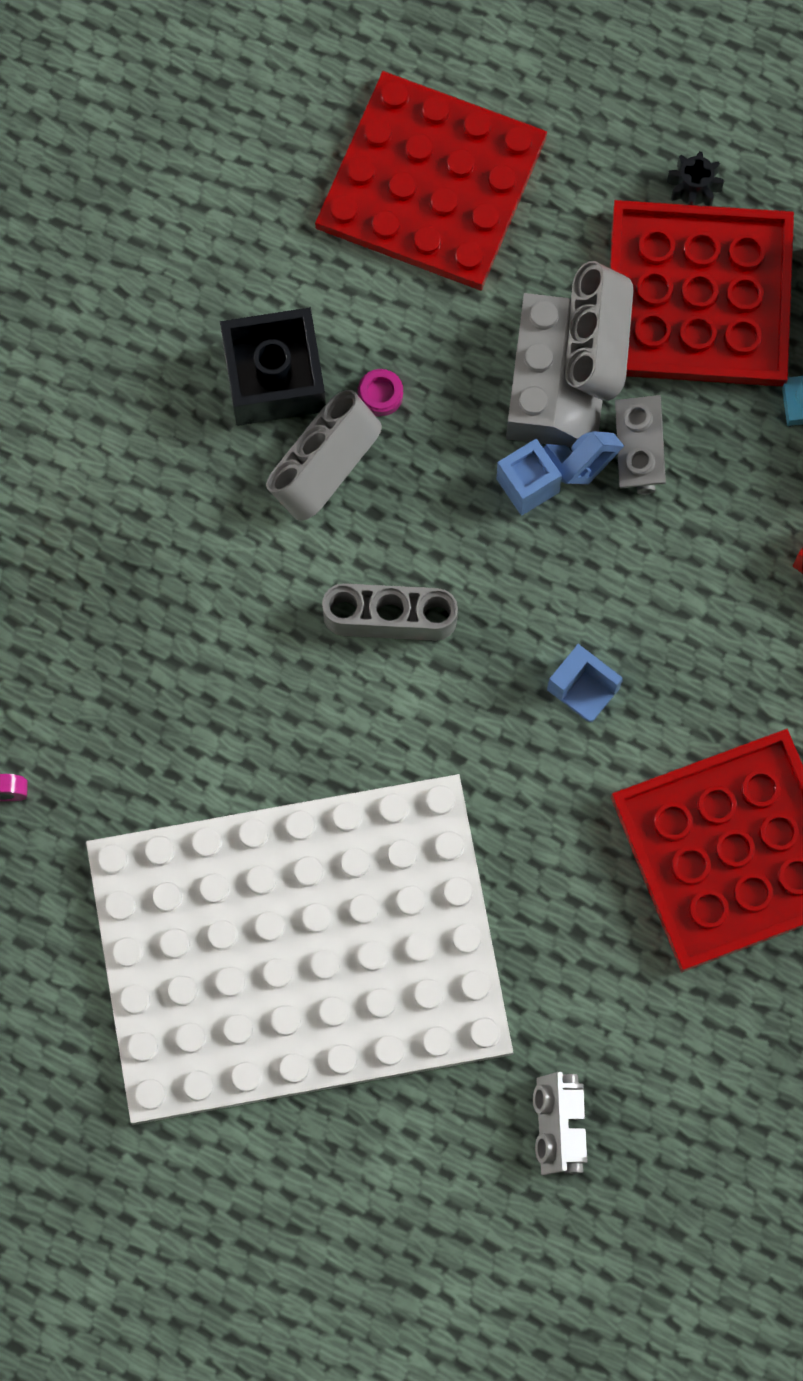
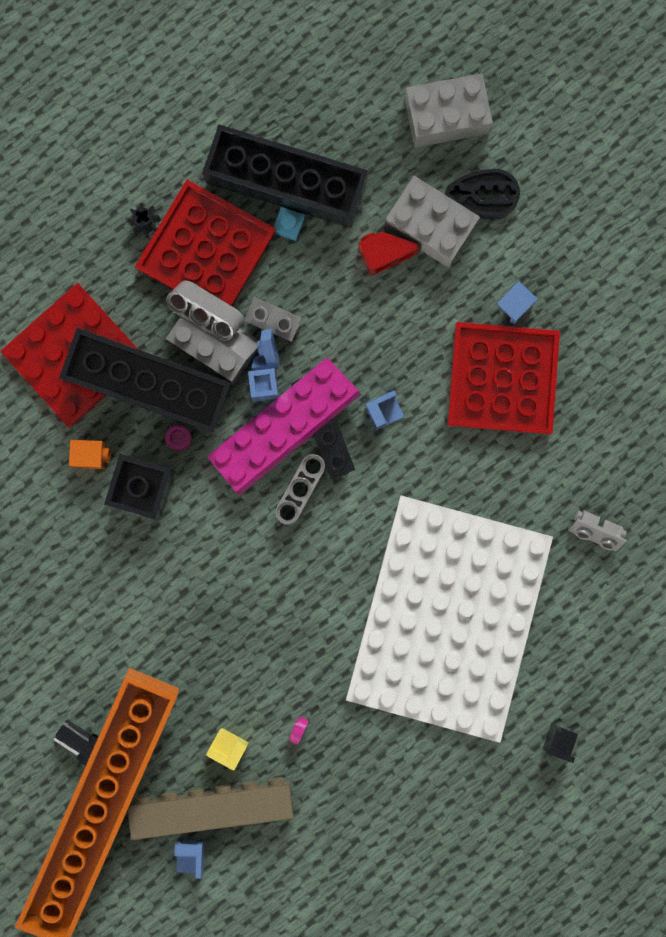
camera: 65 degrees left, 10 degrees up
(176, 1223) = (560, 743): none -> black panel
(287, 270) = (89, 454): none -> orange brick
(324, 455) = (200, 483): light grey beam -> none
(443, 294) = (144, 380): none -> black brick
(478, 632) = (334, 450): none -> black hinge
(479, 538) = (283, 426): none -> dark pink plate

